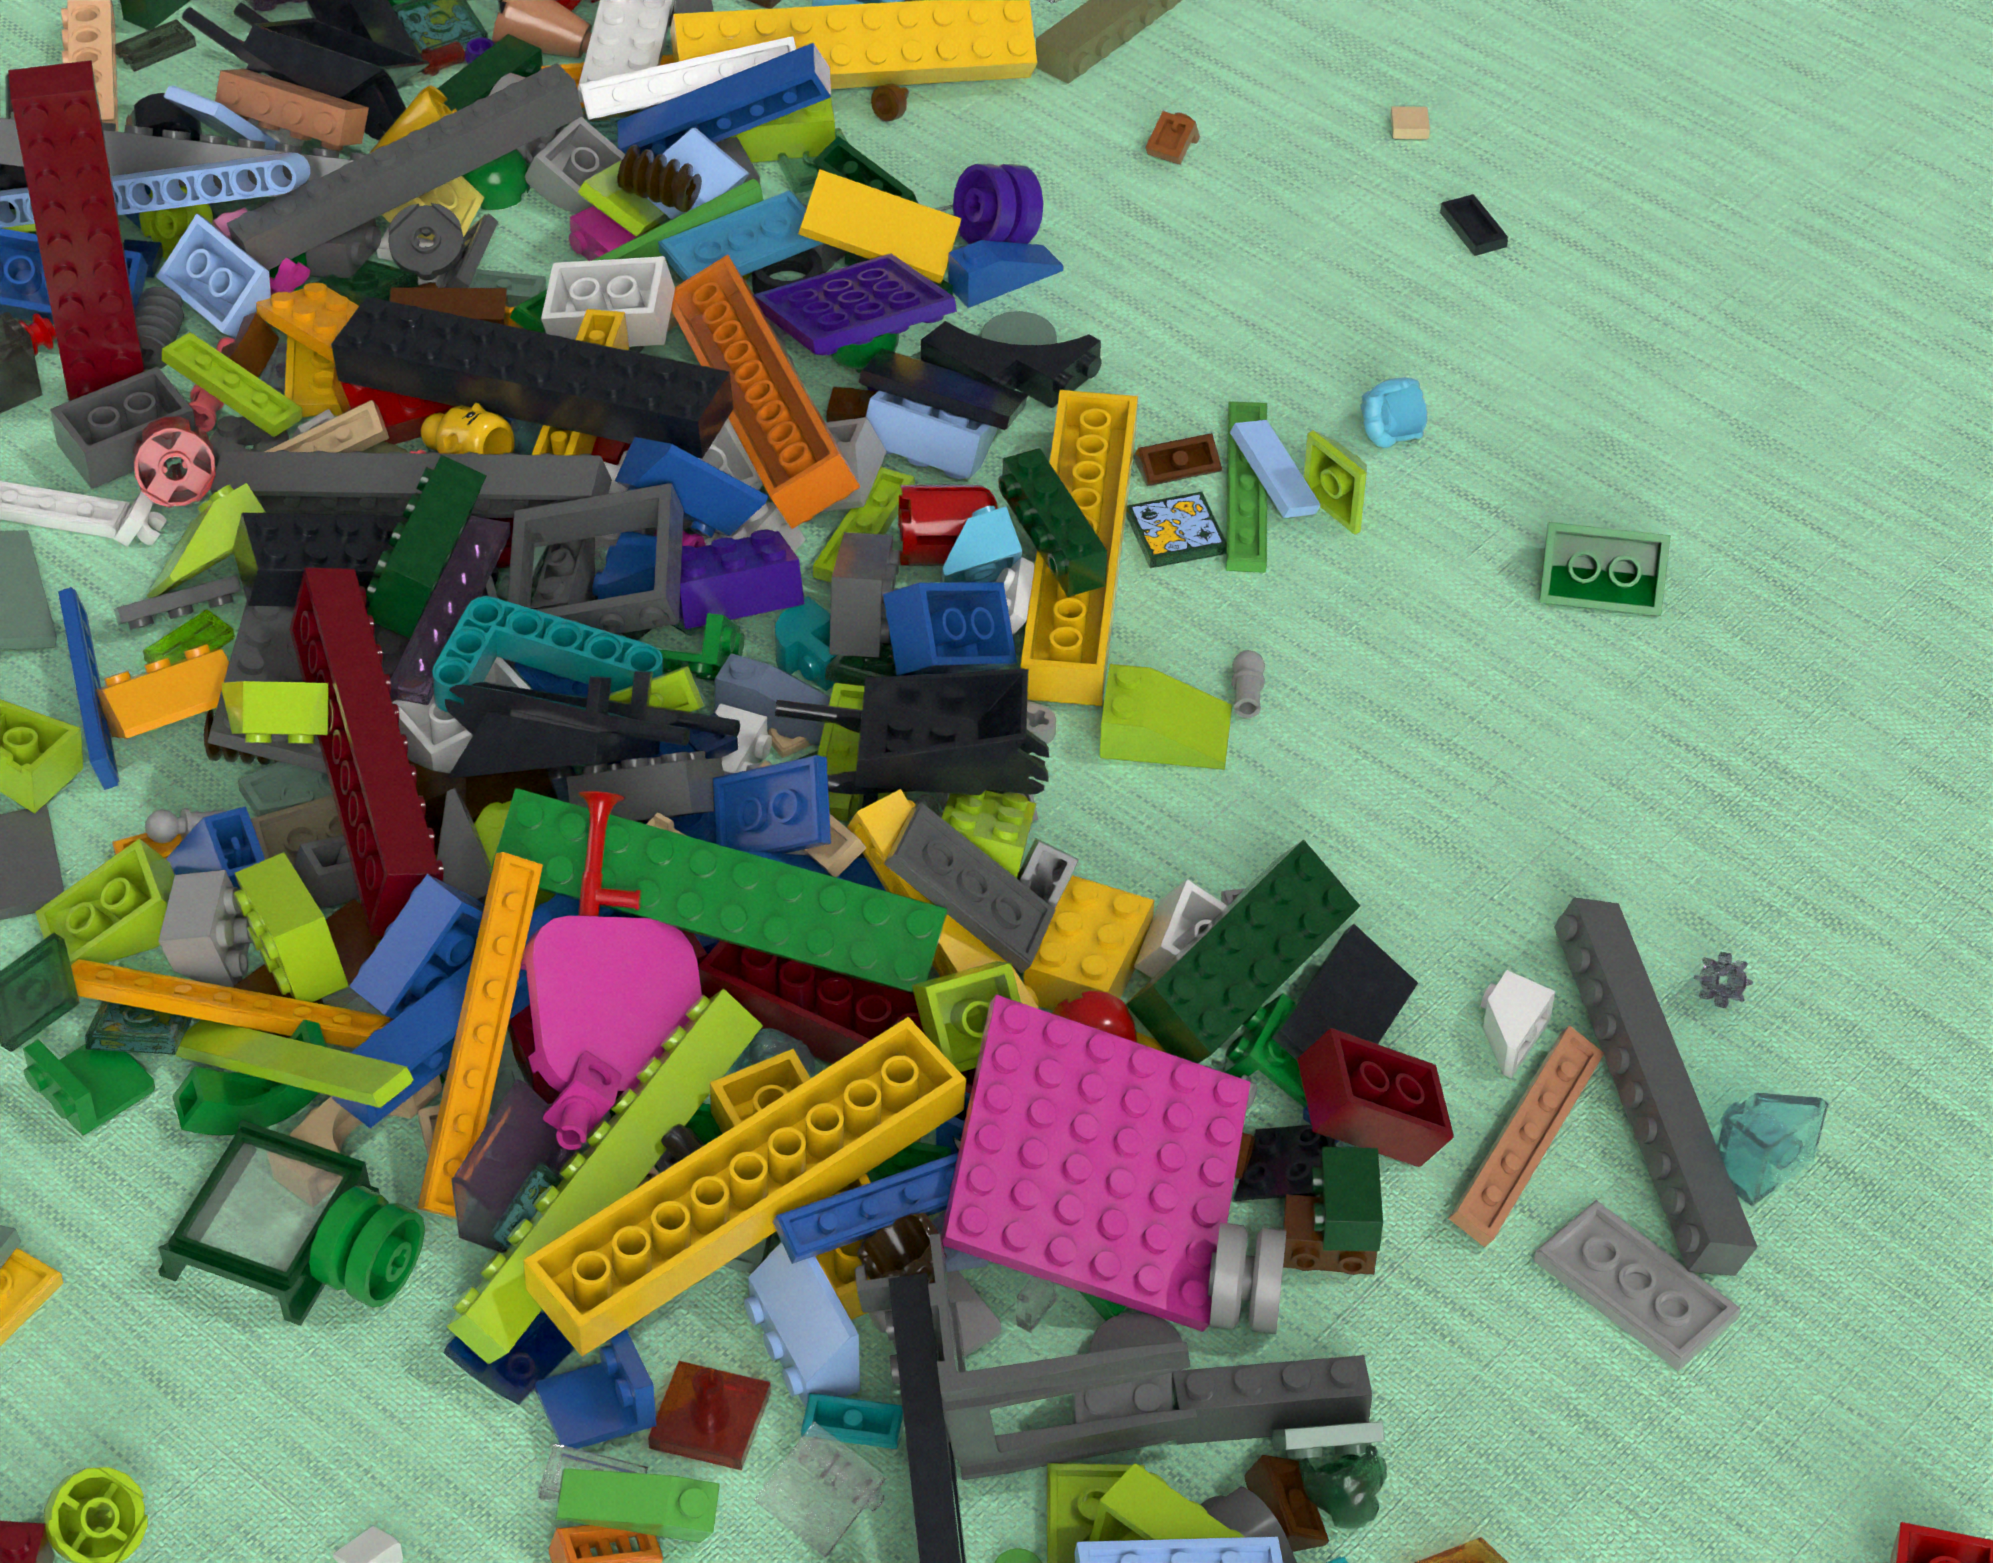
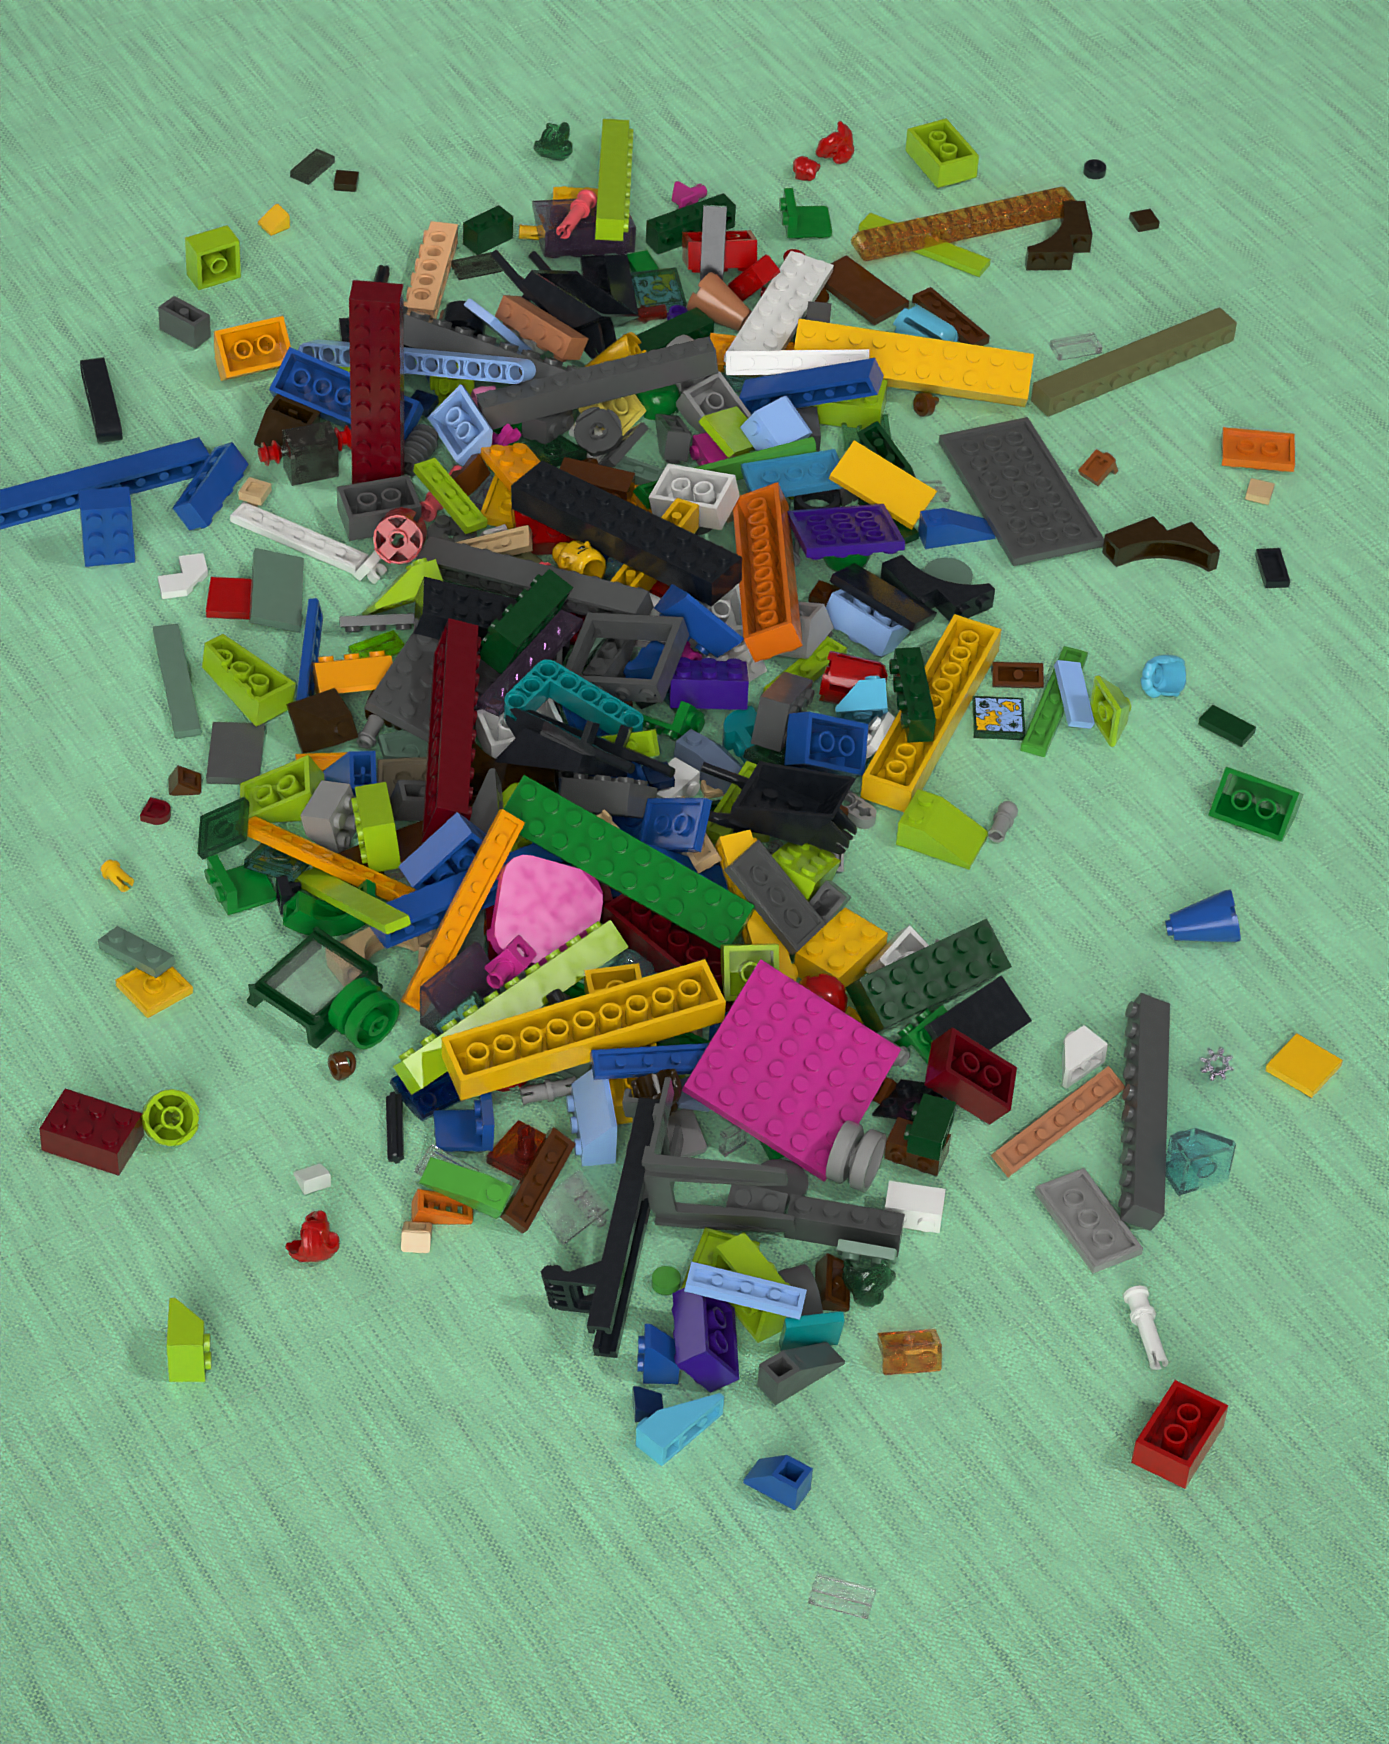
camera: 15 degrees right, 0 degrees up
(139, 777) = (321, 721): none -> dark brown slope
(164, 826) = (326, 751): light grey pin -> none
(168, 1072) = (285, 891): none -> black tile
(220, 787) = (370, 731): none -> light grey pin
(277, 709) = (409, 698): lime slope -> none
(351, 1344) = (339, 1065): none -> reddish brown tile
(479, 1429) = (395, 1131): none -> black axle
(539, 228) = (672, 438): none -> dark grey slope
(592, 893) = (550, 845): red piece -> none
(659, 180) = (752, 424): dark brown piece -> none
(709, 1297) = (546, 1090): none -> light grey pin
(750, 1458) = (537, 1180): none -> reddish brown plate
(856, 1420) = (599, 1173): teal slope -> none
(998, 203) = (963, 486): dark purple wheel -> none
(1100, 207) = (1021, 491): none -> dark grey plate
(1292, 223) = (1151, 540): none -> dark brown arch
(1374, 1328) = (919, 1203): none -> white brick
(1384, 65) = (1258, 449): none -> orange plate
(1509, 464) = (1227, 725): none -> dark green tile
(1616, 760) = (1206, 920): none -> blue cone
(1791, 1423) = (1143, 1317): none -> white pin
(1846, 948) = (1304, 1065): none -> yellow tile

